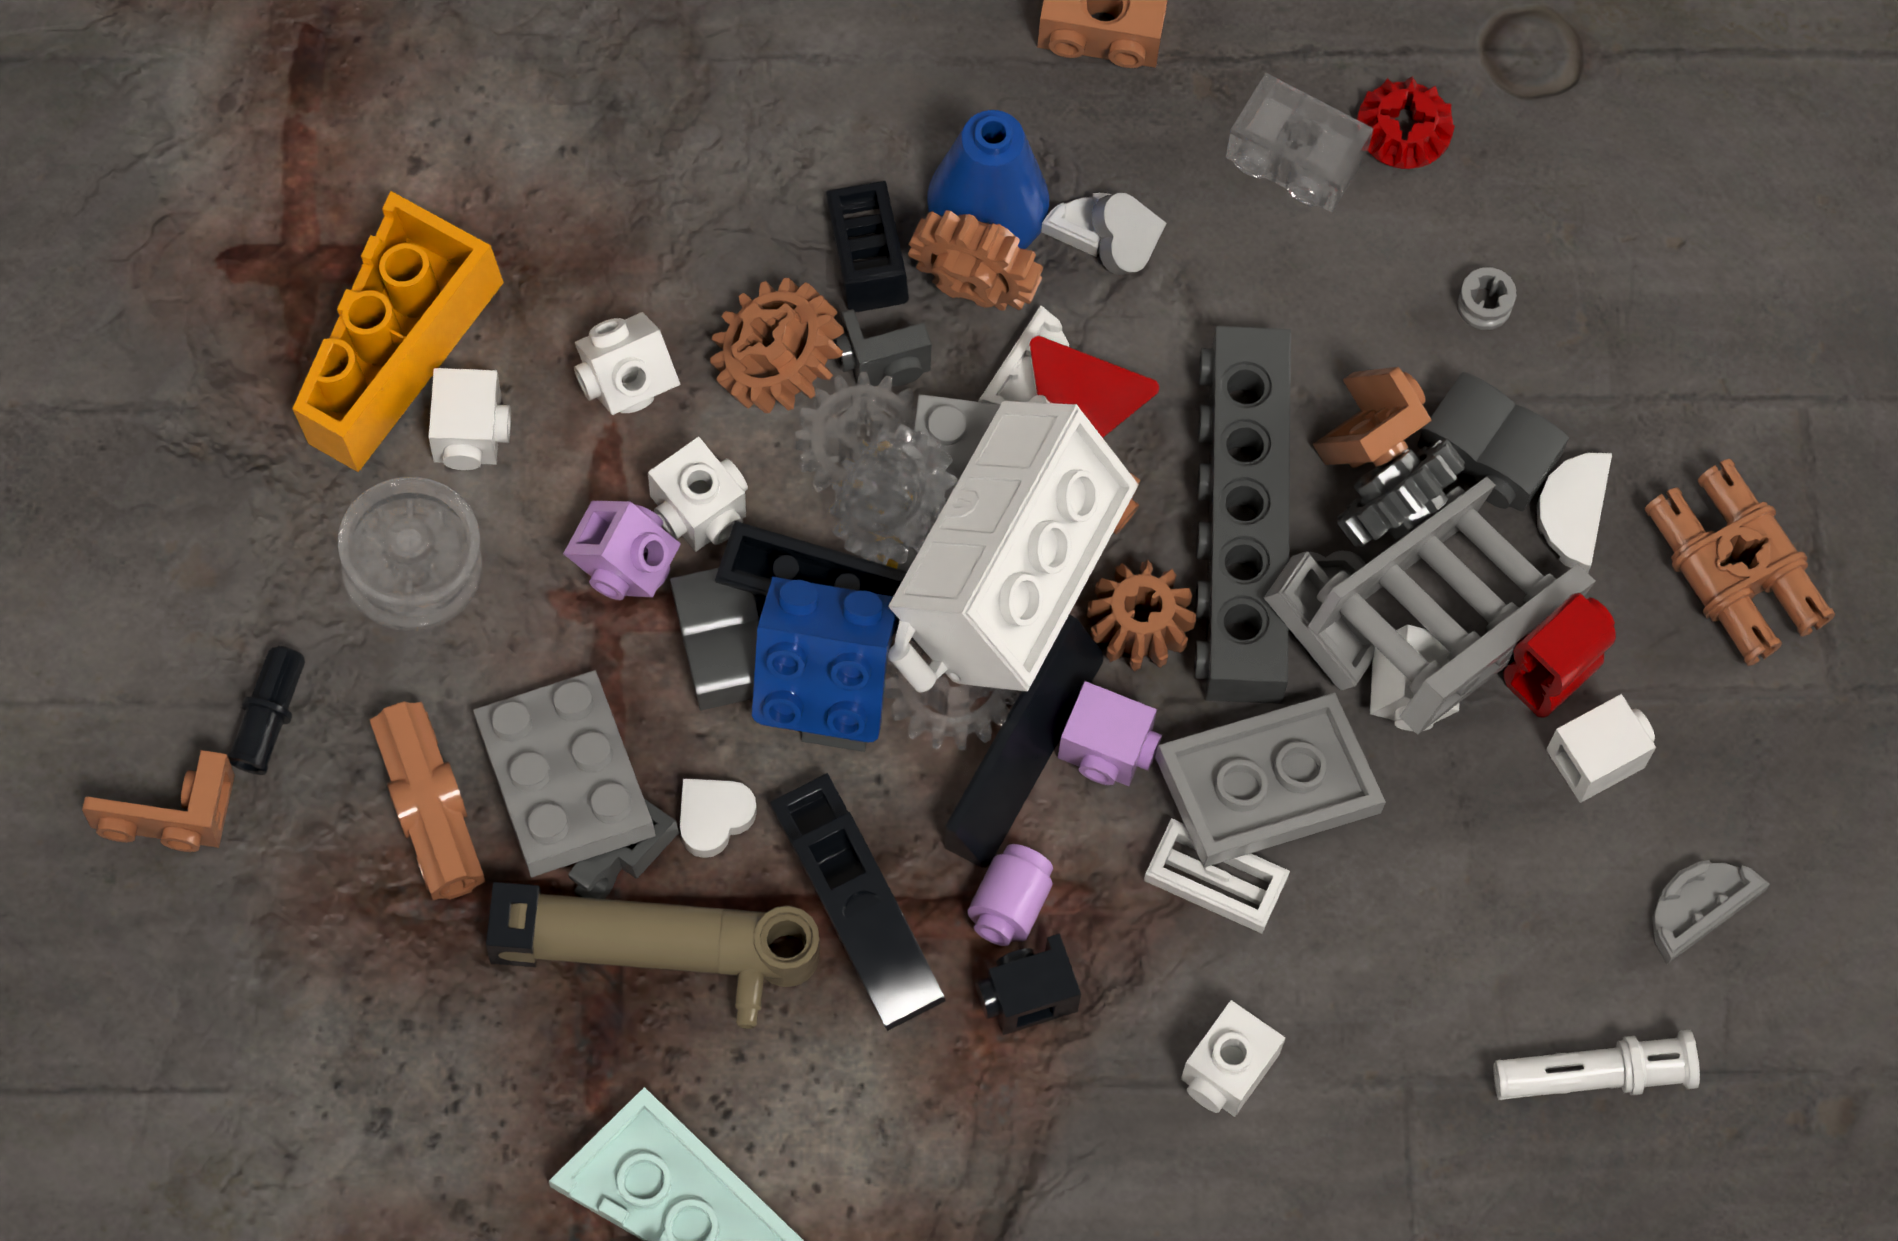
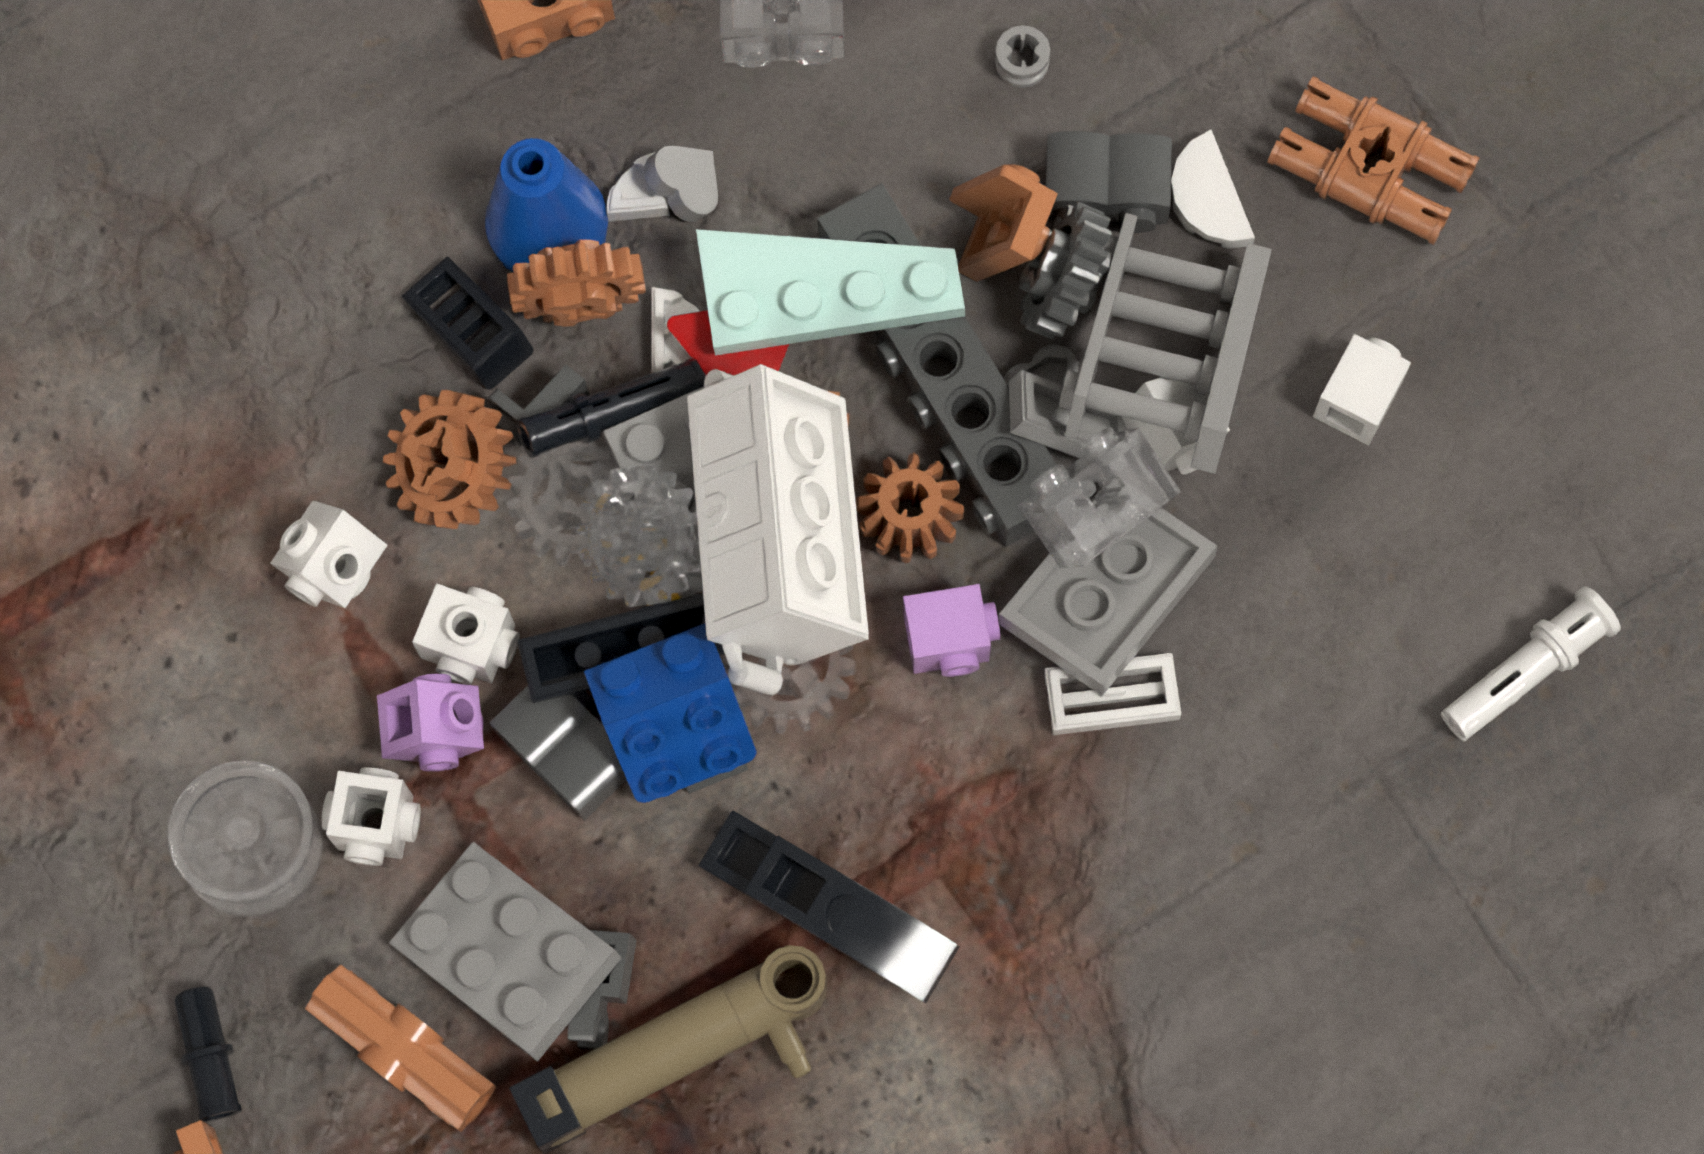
camera: 25 degrees left, 5 degrees up
(396, 324) = (103, 645): light orange wedge -> none
(467, 418) = (218, 687): white brick -> none
(521, 577) = (357, 799): none -> white brick
(714, 812) = (654, 904): white tile -> none
(915, 375) = (590, 415): none -> black pin
(1011, 895) = (954, 819): lavender brick -> none
(1022, 747) = (884, 689): black slope -> none
(1030, 987) = (1020, 889): black brick -> none
(1171, 380) = (810, 289): none -> light aqua wing
(1231, 1060) = (1228, 847): white brick -> none
(1341, 702) = (1132, 489): none -> clear brick
(1560, 654) = (1284, 329): red brick -> none
(1699, 902) = (1520, 470): light grey tile -> none

